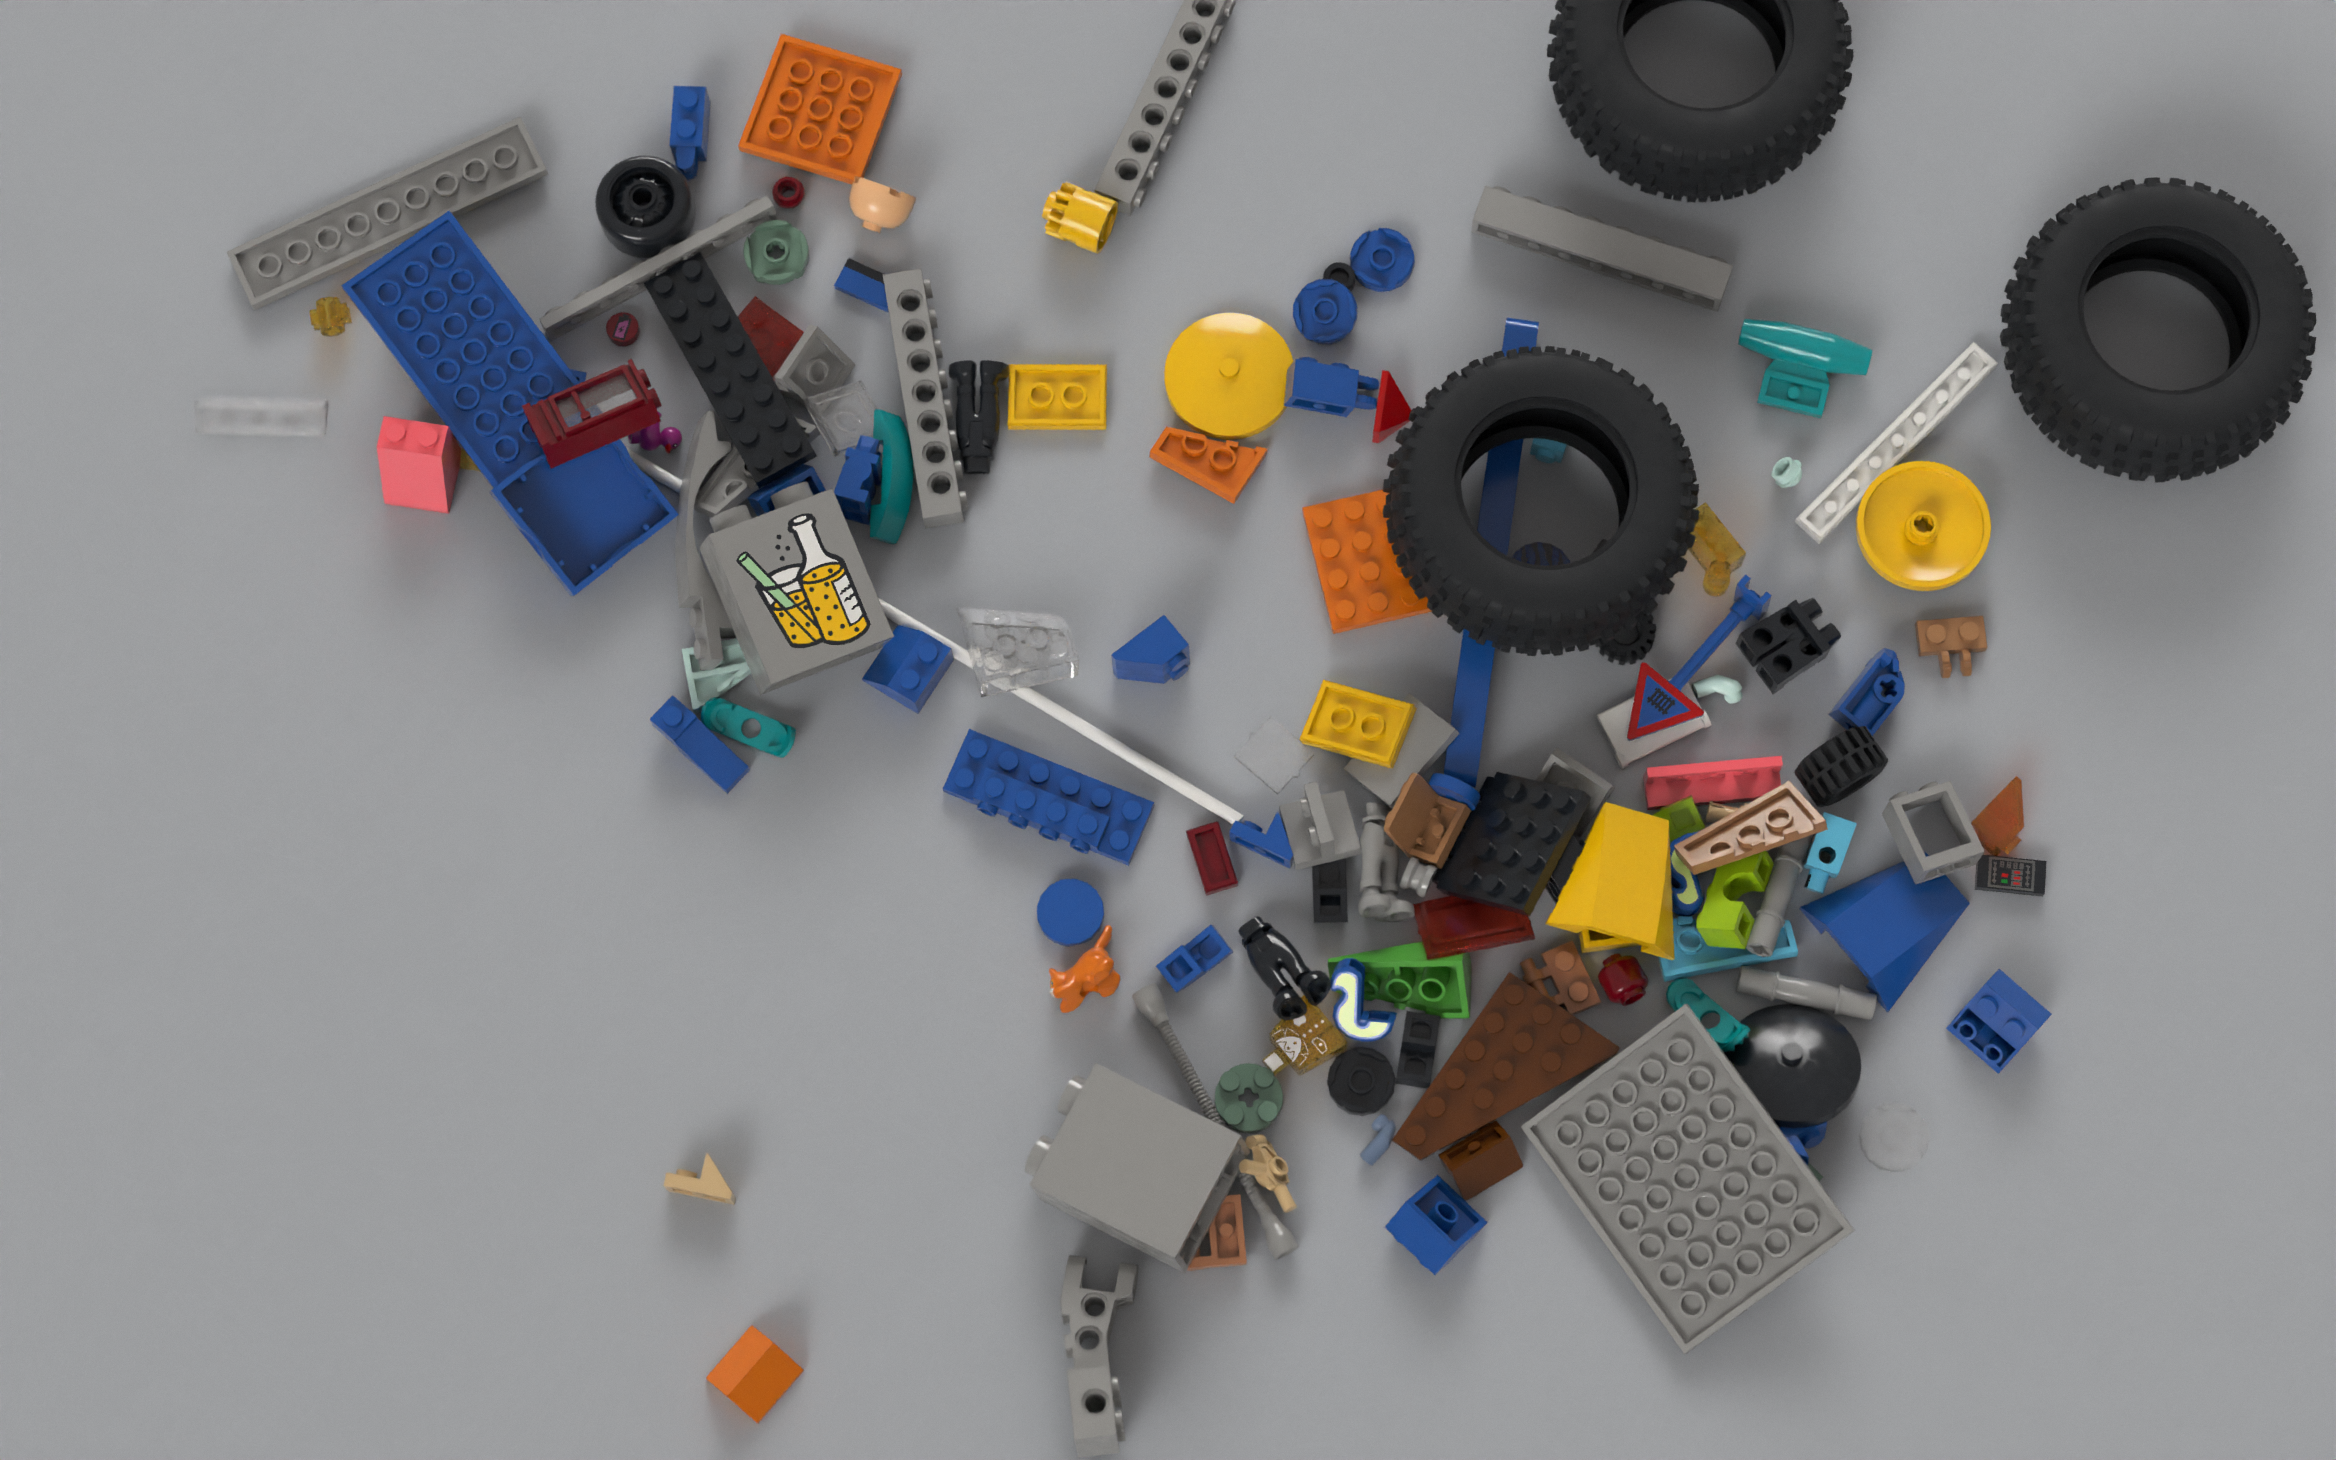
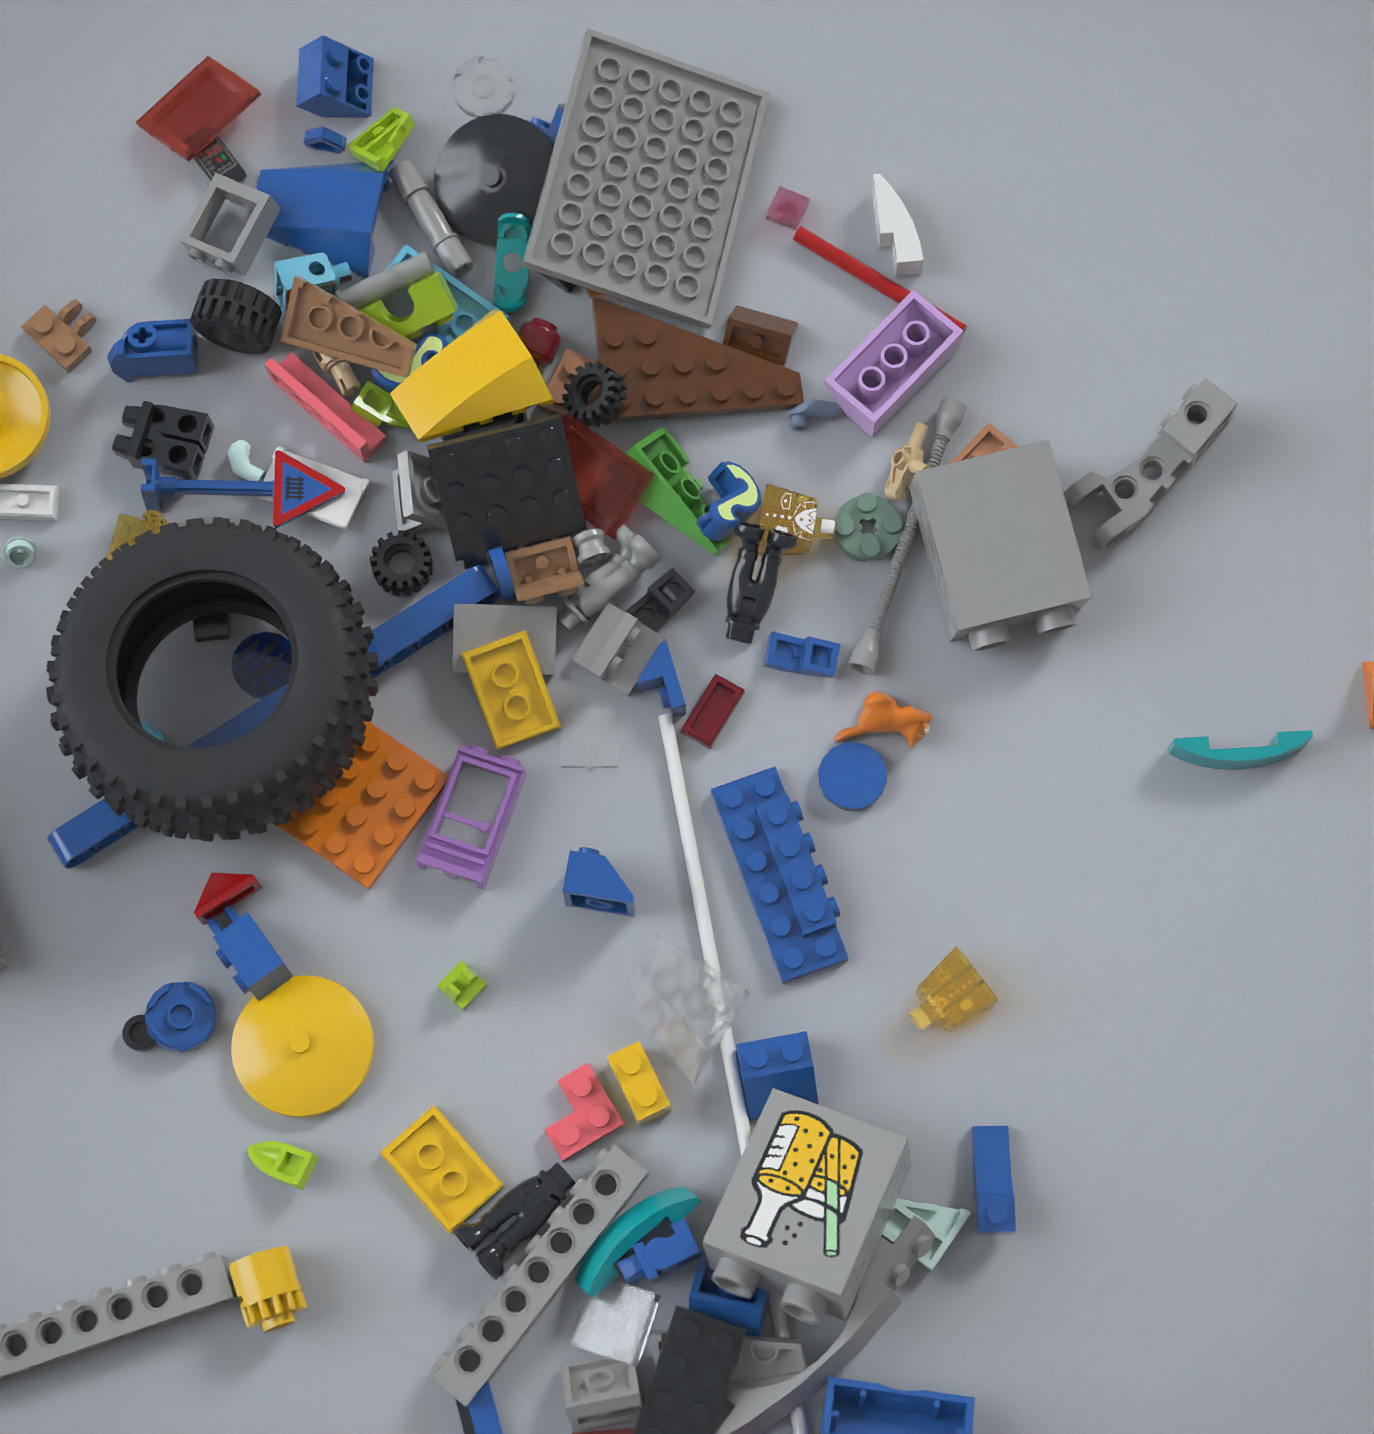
camera: 135 degrees left, 0 degrees up
(709, 1186) = (1309, 845): tan slope -> none
(729, 718) = (931, 1130): teal piece -> none
(849, 834) = (952, 994): none -> clear yellow torso
(853, 1173) = (1198, 752): none -> teal slope
(989, 568) = (639, 1083): none -> yellow piece
(999, 523) = (592, 1115): none -> coral plate
(1158, 297) = (283, 1162): none -> lime plate
(1172, 514) = (462, 985): none -> lime tile
(1209, 463) = (393, 993): orange wing -> none
(1287, 619) = (472, 815): none -> medium lavender door
(1359, 1230) = (893, 362): none -> lavender slope
(1361, 1081) = (780, 461): black tile -> none
(1382, 259) = (93, 1014): blue tile -> none
(1417, 1049) = (721, 443): black slope -> none
(1435, 1224) = (835, 320): blue slope -> none
(1442, 1293) = (857, 268): none -> red piece
(1476, 1345) = (896, 228): none -> white slope
(1527, 987) = (582, 385): none -> black tyre
(1536, 713) = (401, 582): none -> black tyre
(1569, 1277) = (787, 208): none -> clear pink plate
(1909, 1010) = (382, 139): none -> lime wing
(1950, 969) = (325, 139): none -> blue tile
(2001, 820) = (174, 191): clear orange slope -> none
(2065, 894) = (198, 108): none -> clear red piece

